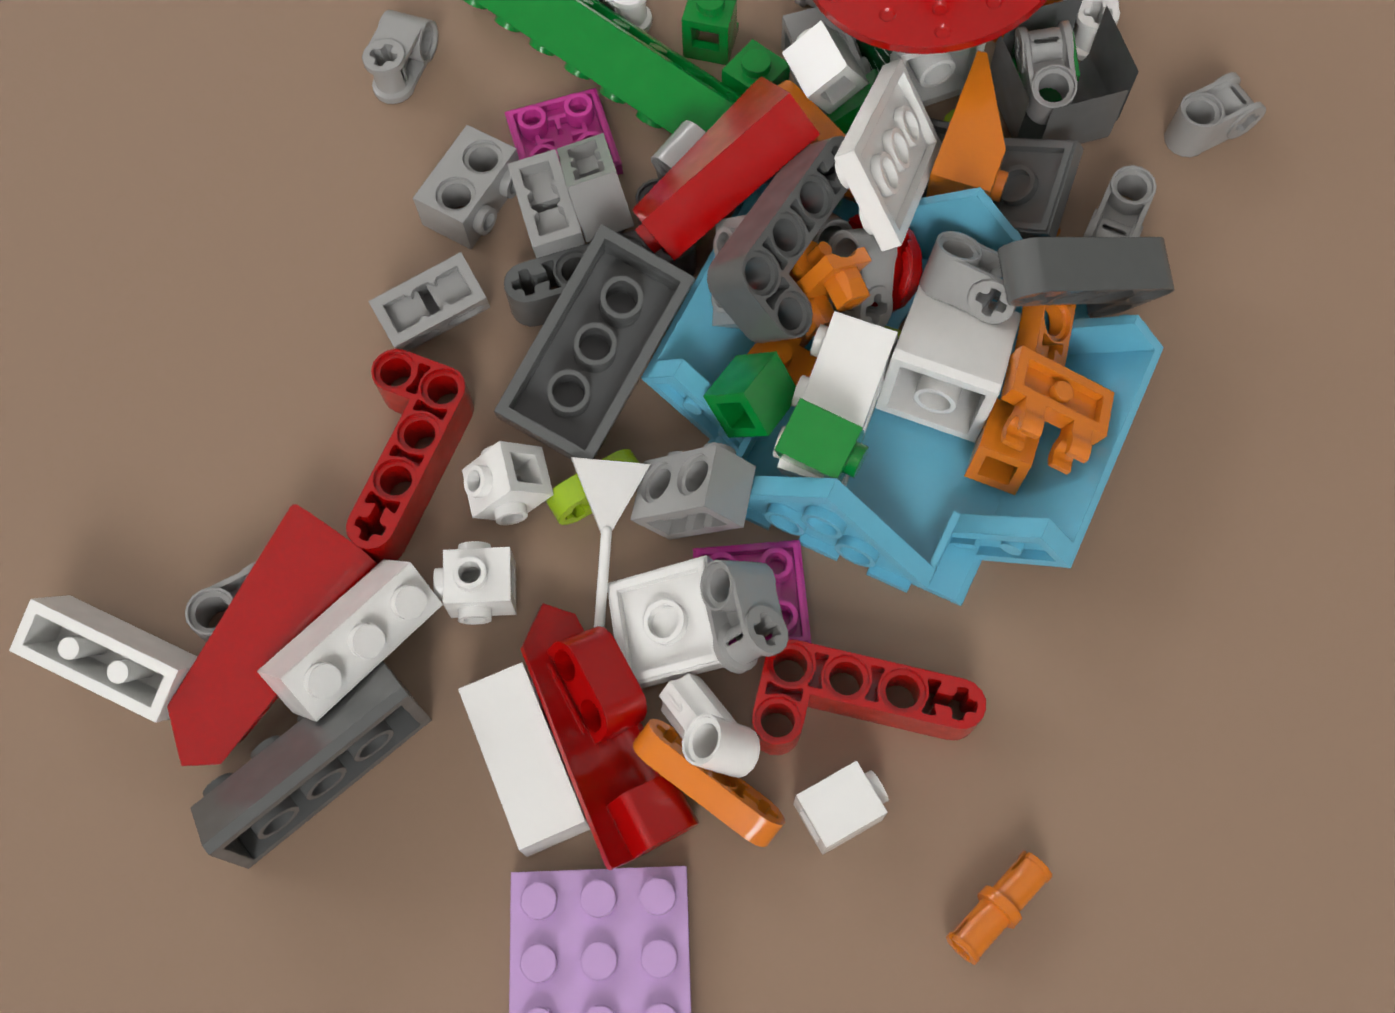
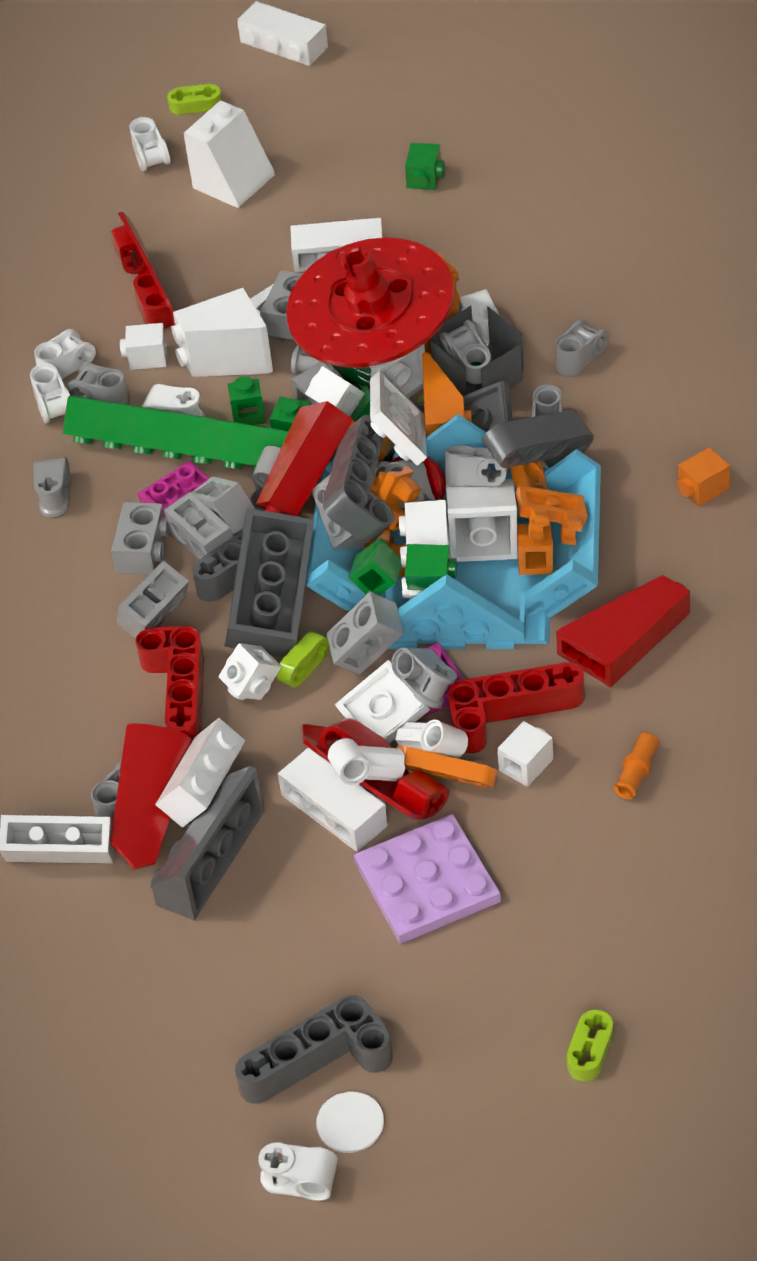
camera: 20 degrees left, 20 degrees down
(477, 582) = (260, 725): white brick -> none
(568, 742) = (359, 763): none -> white piece
(608, 491) = (315, 651): white piece -> none
(1079, 644) = (624, 630): none -> red slope
(1311, 416) = (703, 476): none -> orange brick

